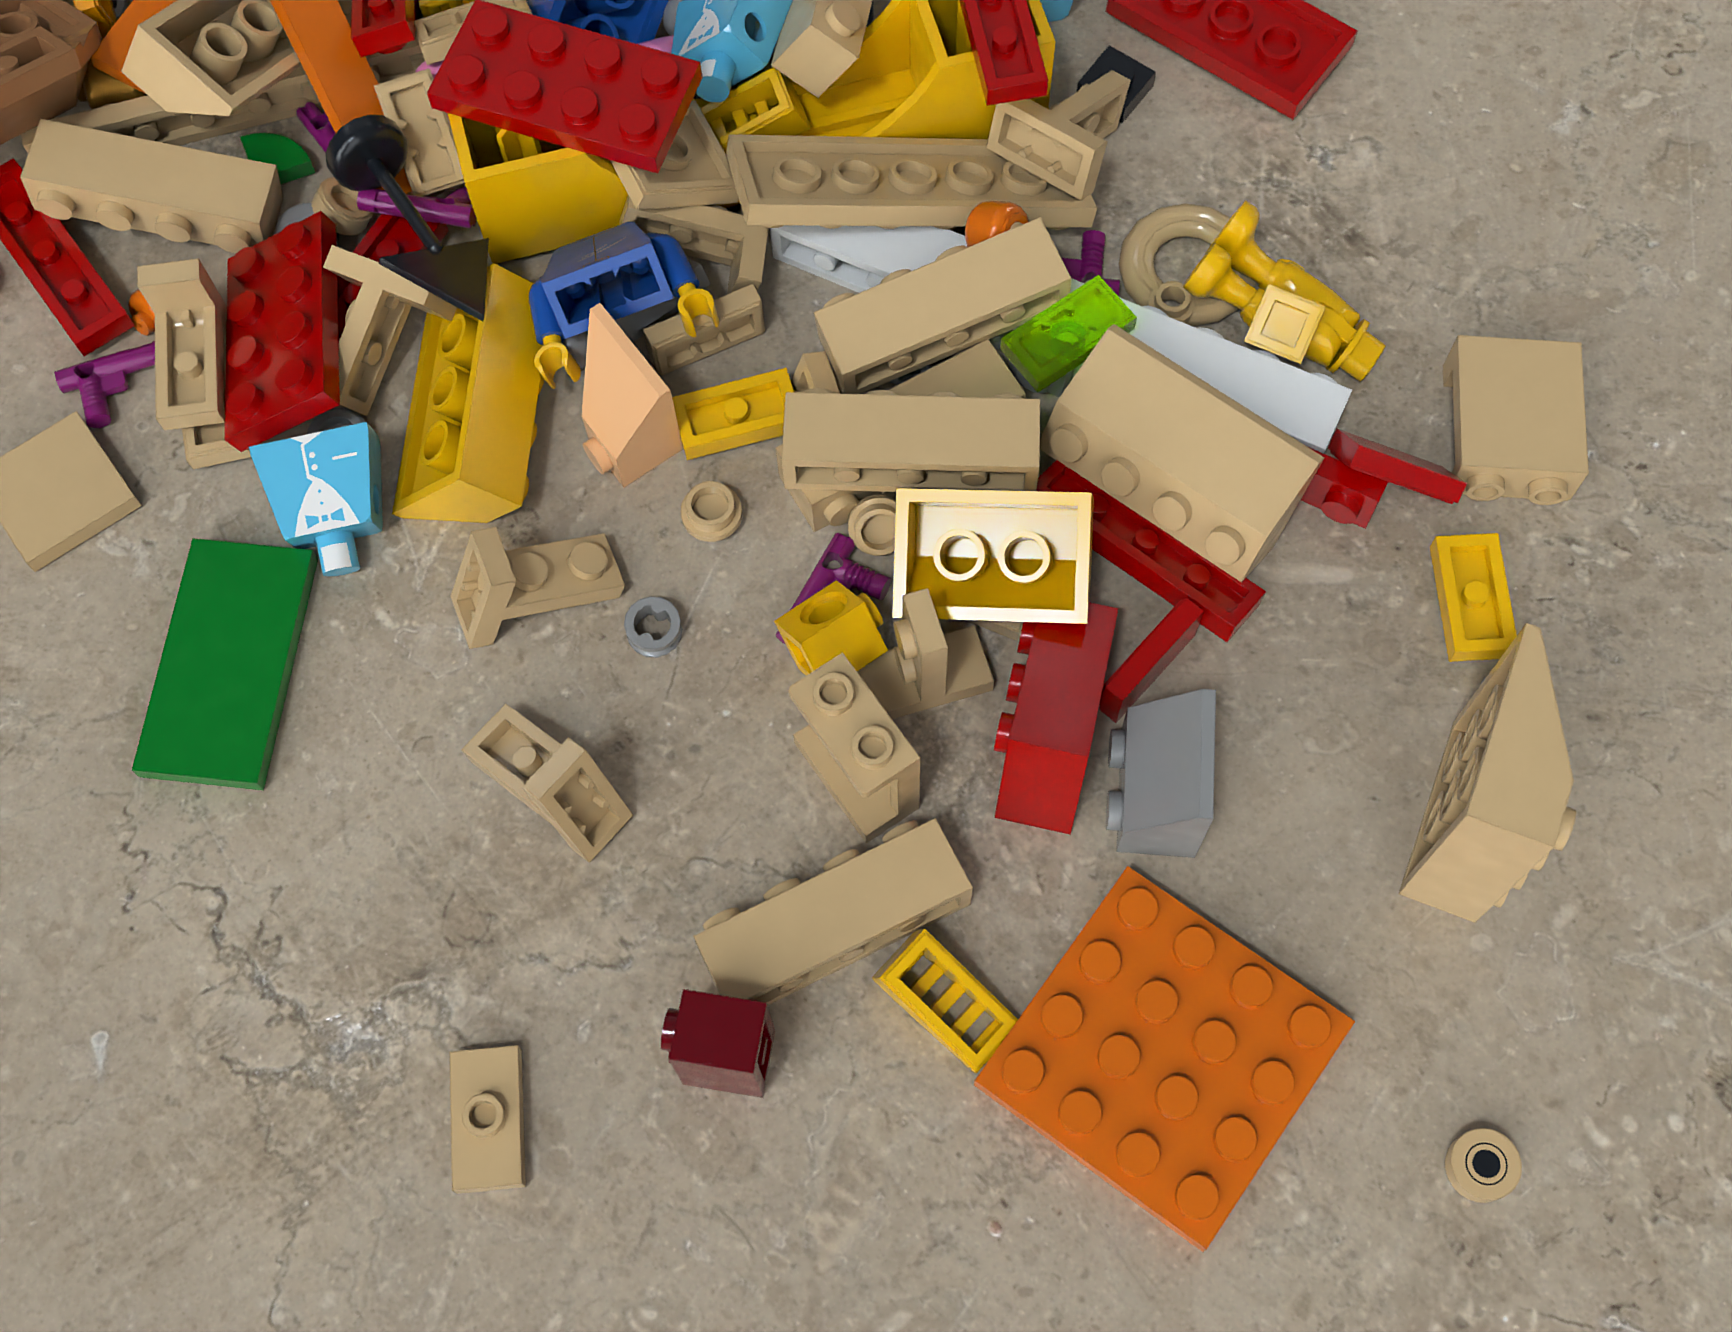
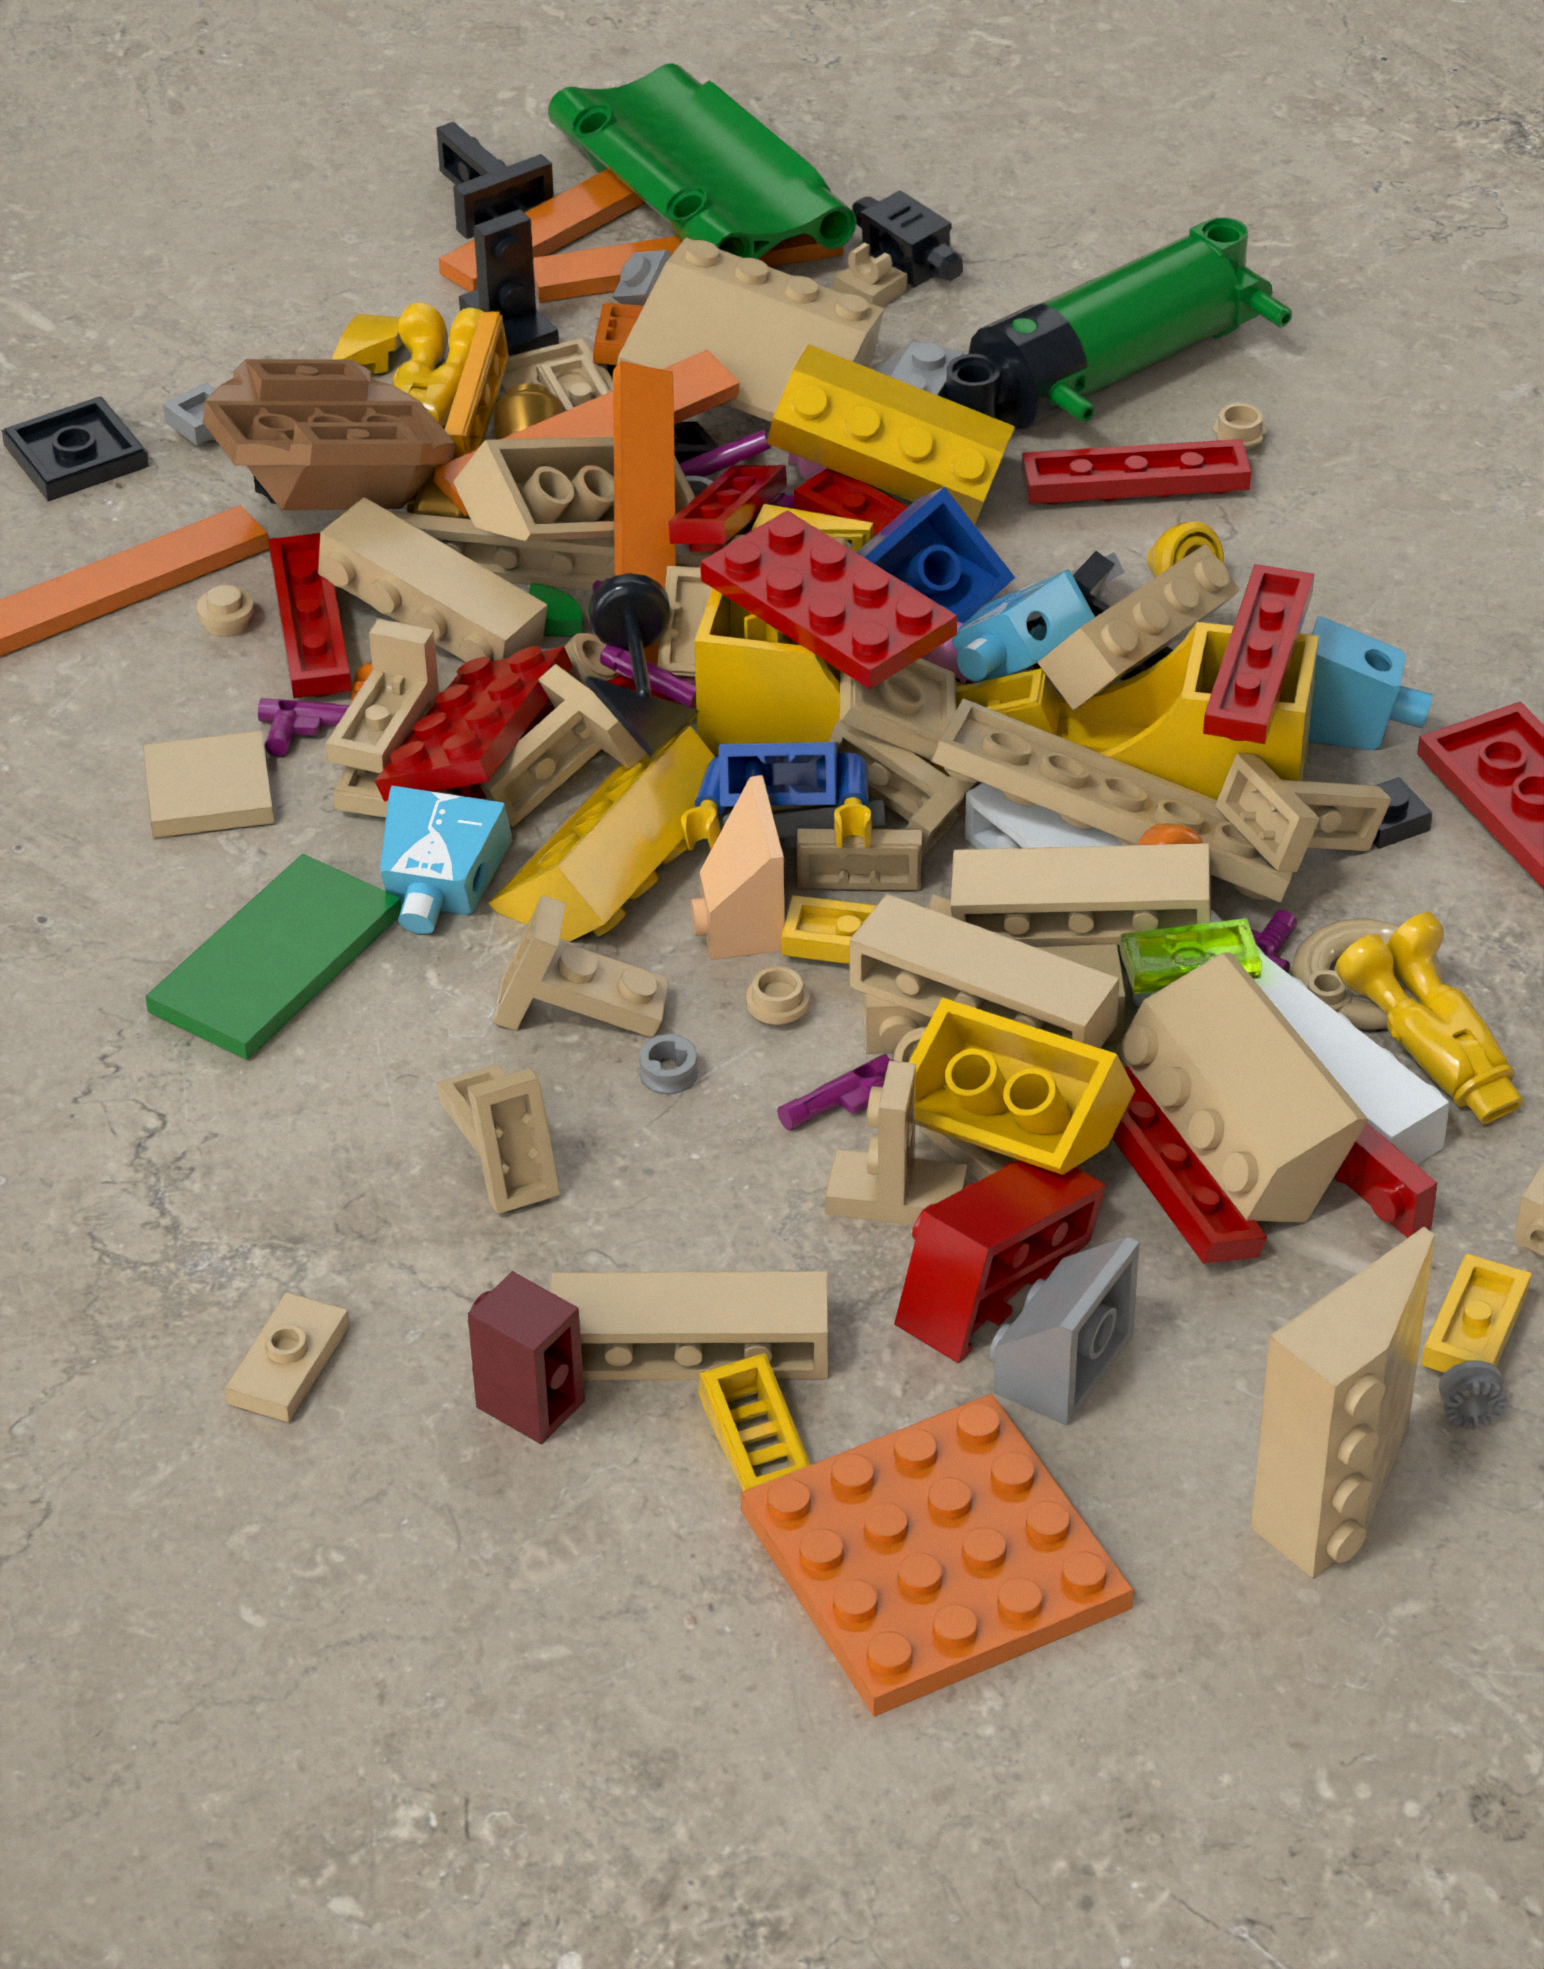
camera: 25 degrees right, 25 degrees down
(833, 624) = (824, 1115): yellow brick -> none
(856, 748) = (790, 1190): tan panel -> none
(1150, 659) = (1156, 1227): red tile -> none
(1284, 324) = (1415, 1030): yellow tile -> none
(1396, 467) = (1457, 1180): red tile -> none
(1483, 1165) = (1188, 1752): tan tile -> none

